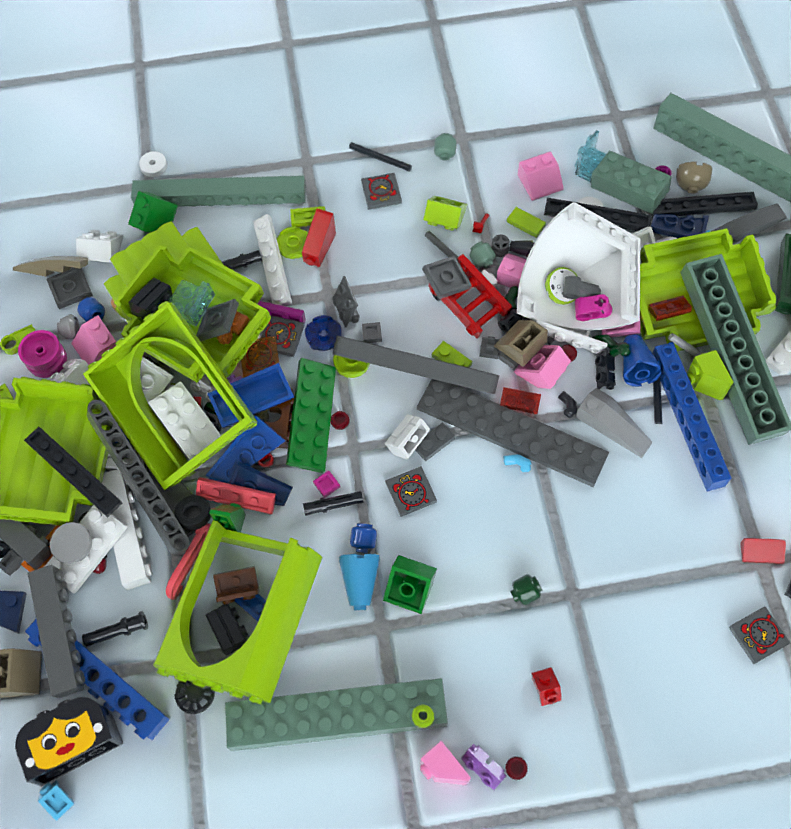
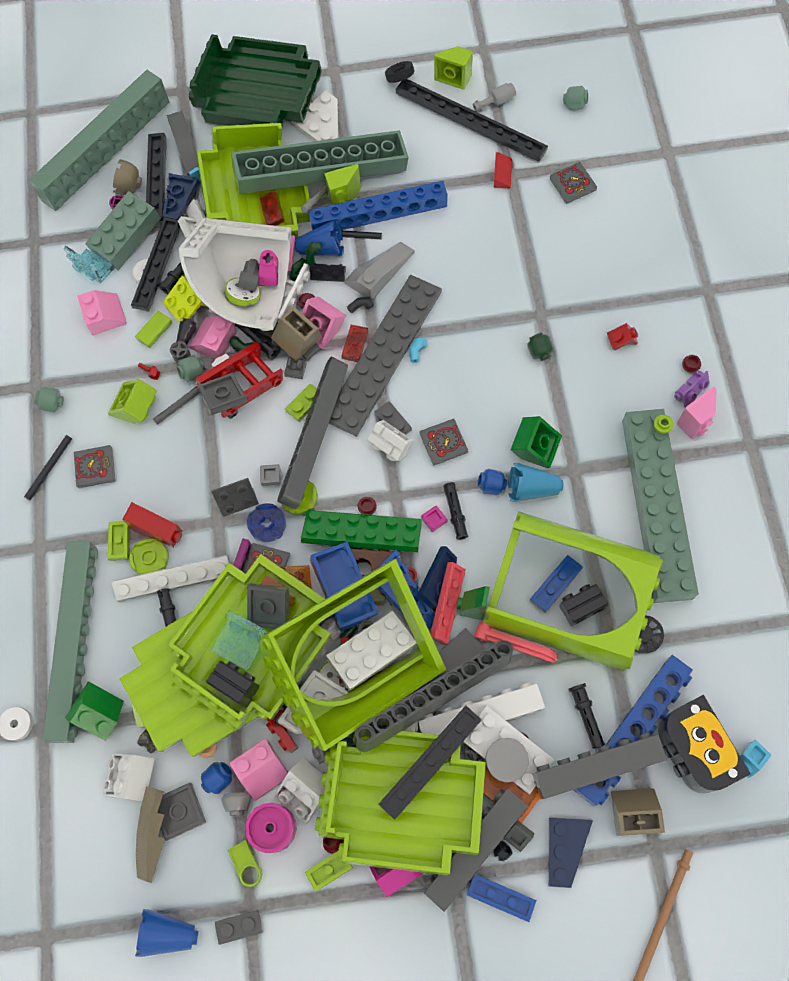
camera: 85 degrees left, 5 degrees up
(187, 503) = (458, 633): black tyre -> none
(236, 584) = (545, 593): reddish brown bracket -> none

